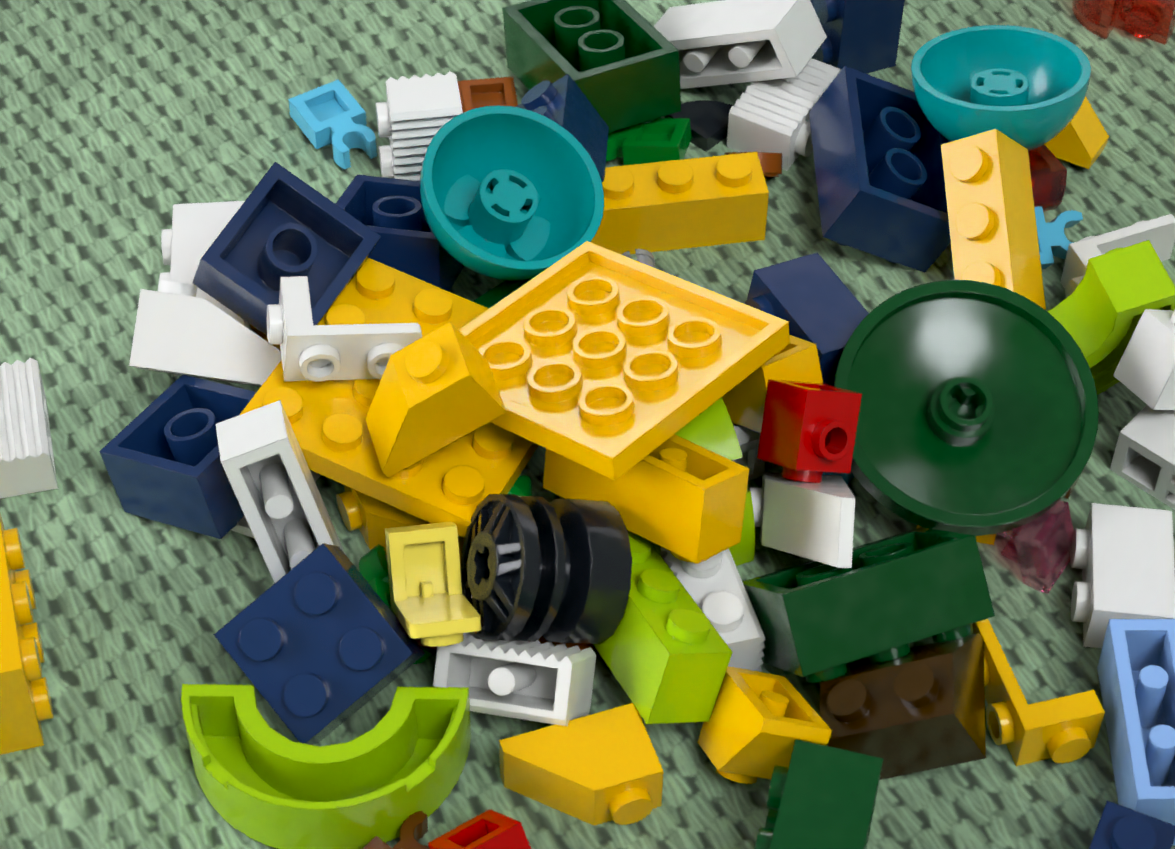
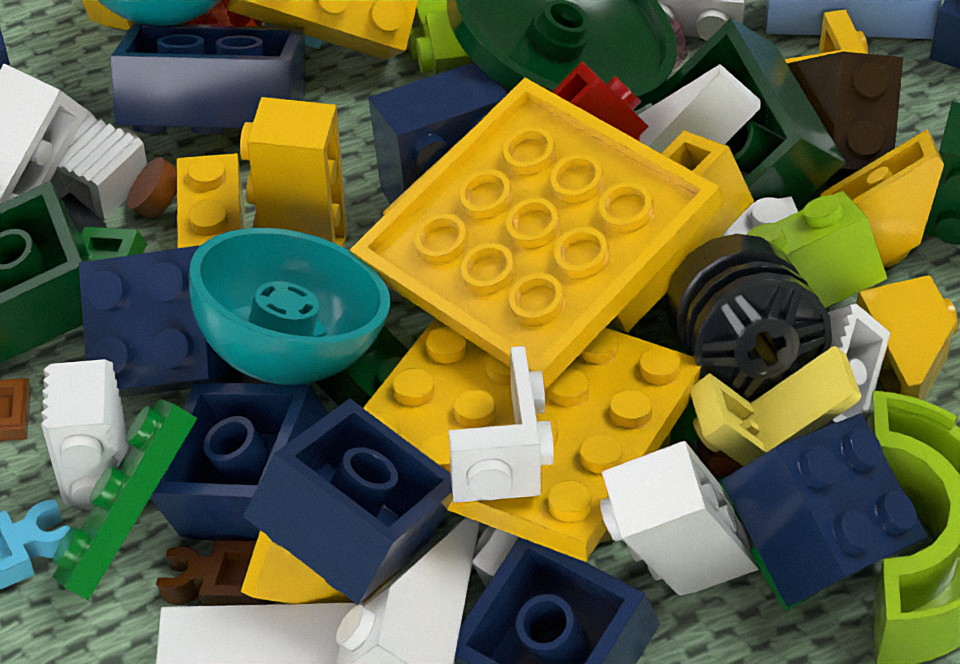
camera: 85 degrees left, 0 degrees up
(322, 161) = (121, 497): none -> green plate
(431, 398) = (622, 339): yellow slope -> none
(708, 211) = (296, 168): none -> yellow brick

